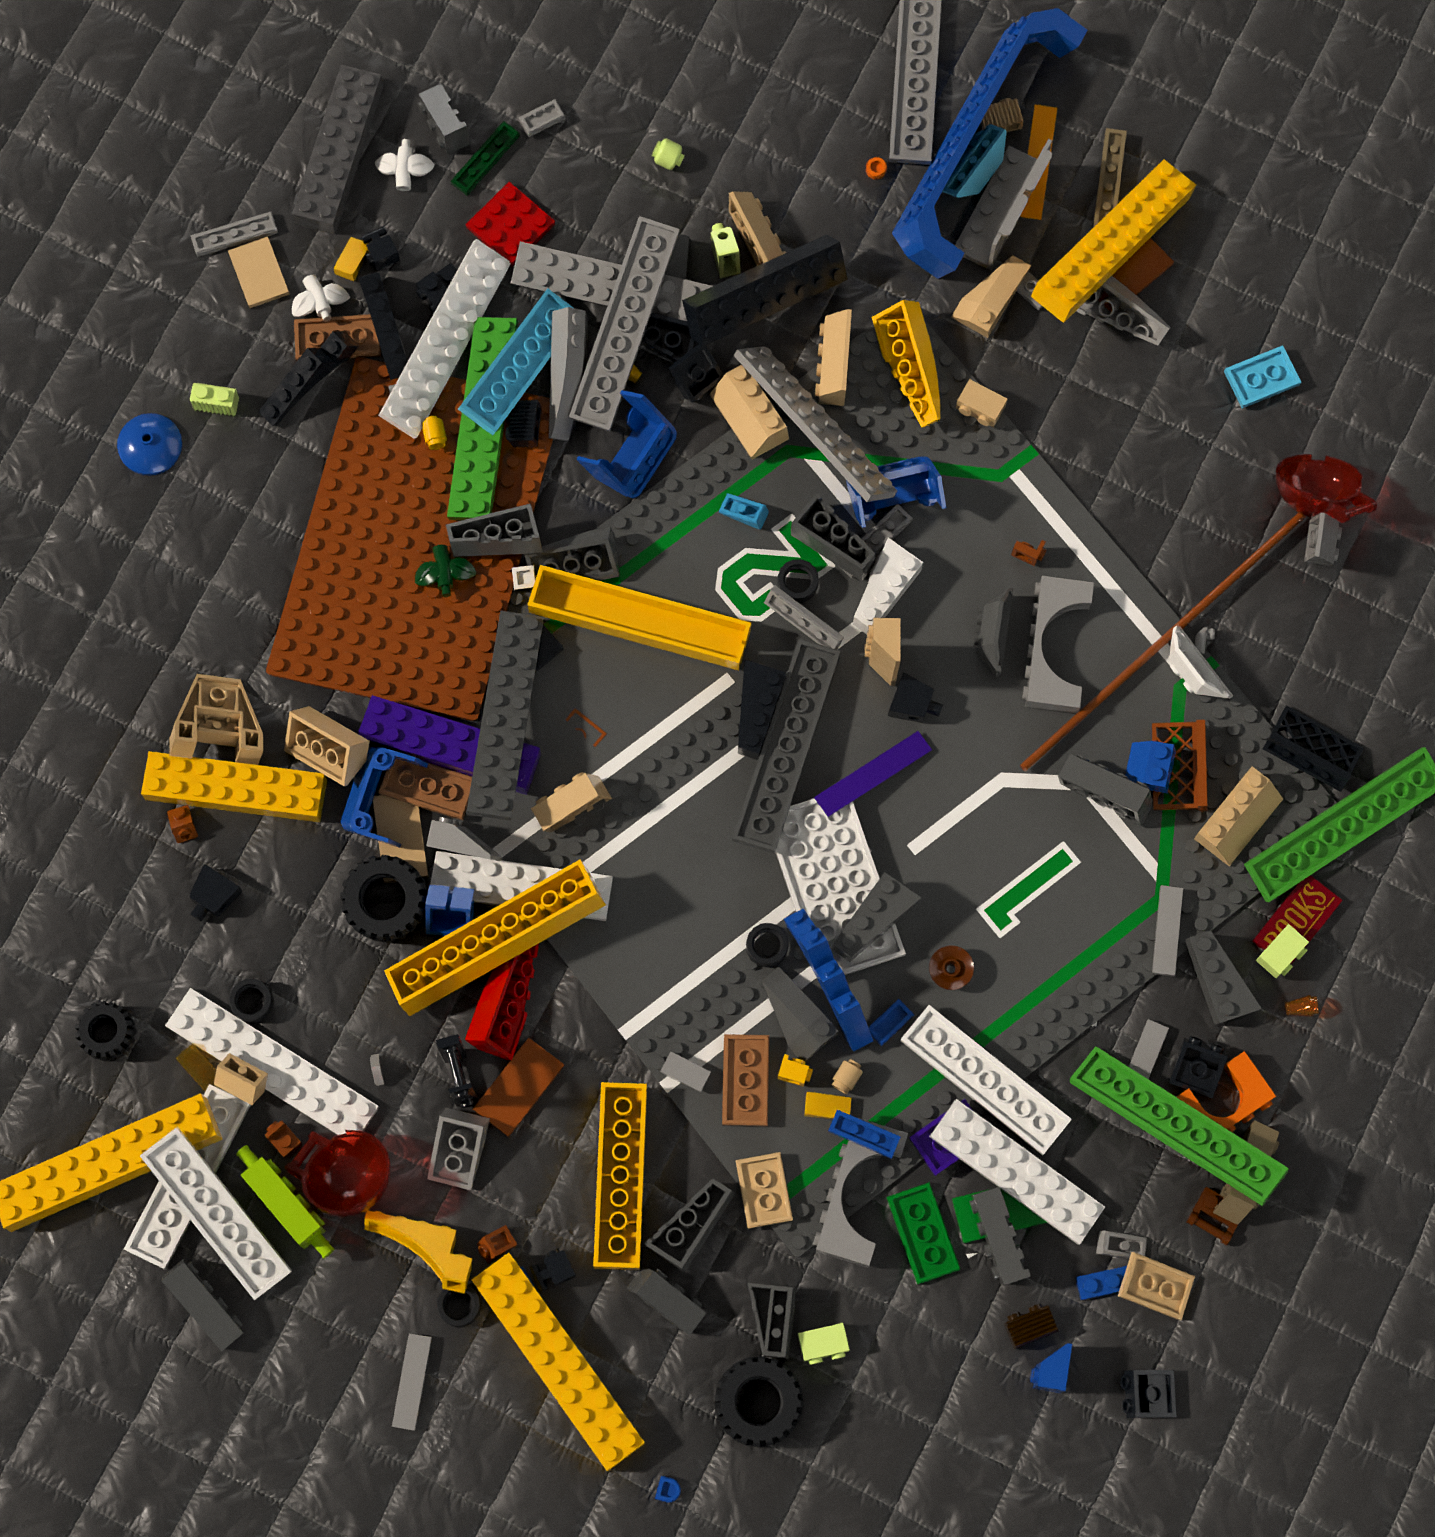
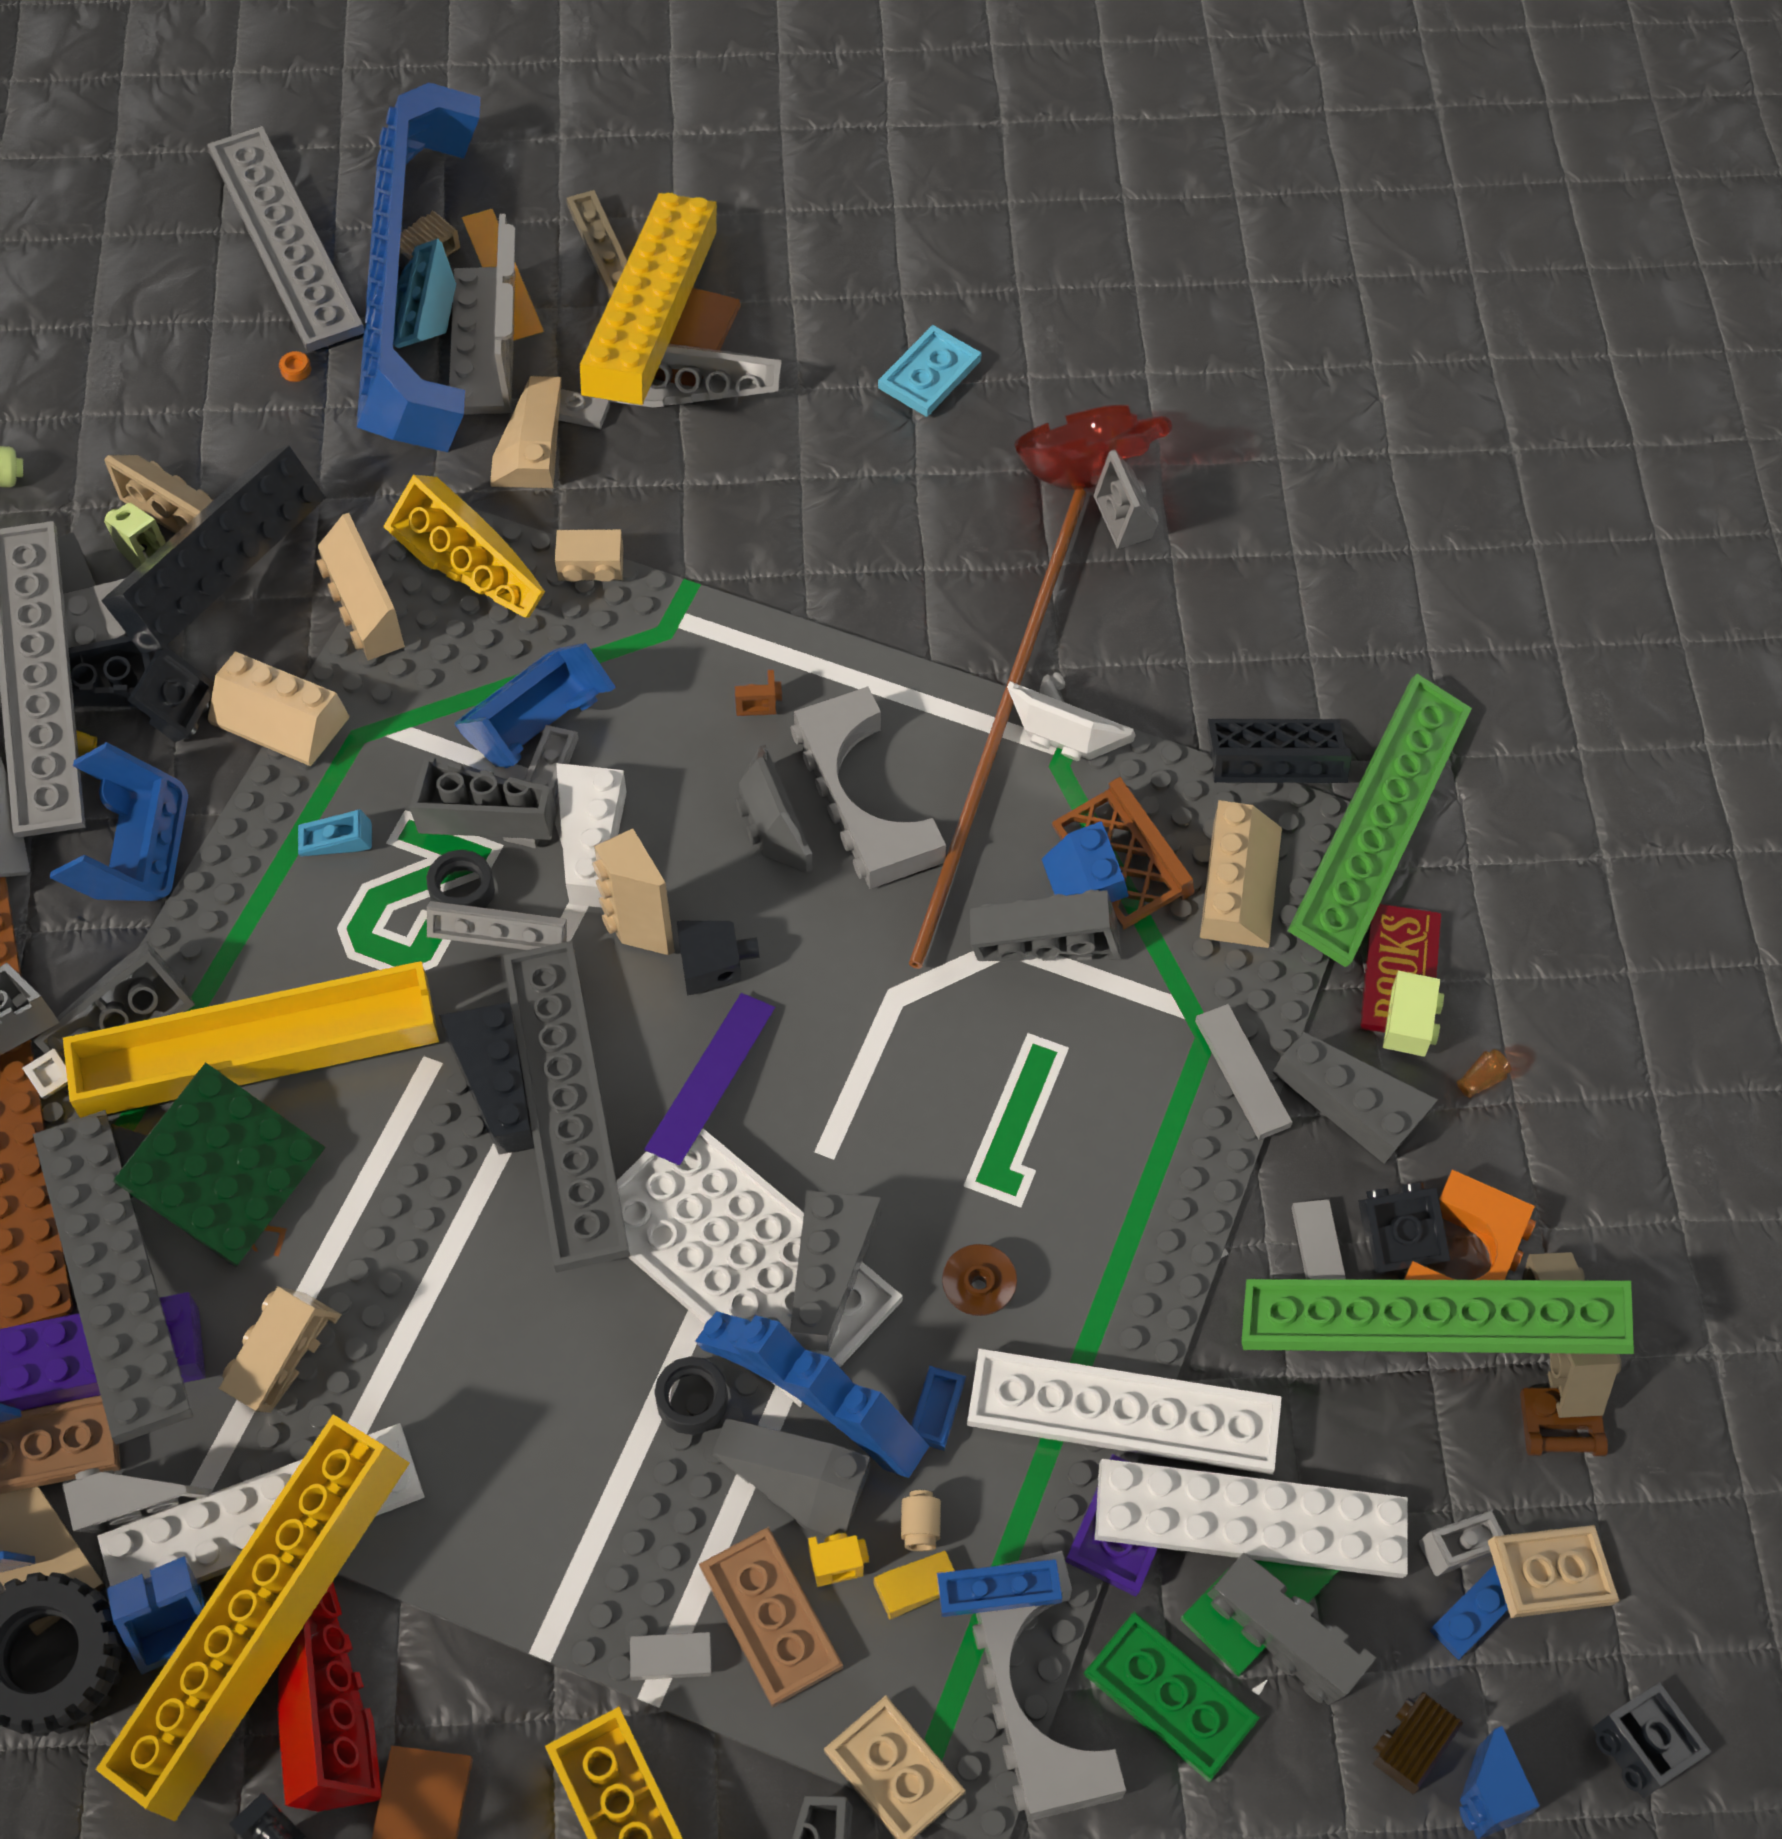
camera: 30 degrees left, 15 degrees down
(589, 682) = (219, 1164): none -> dark green plate
(816, 423) = (372, 672): light grey plate -> none

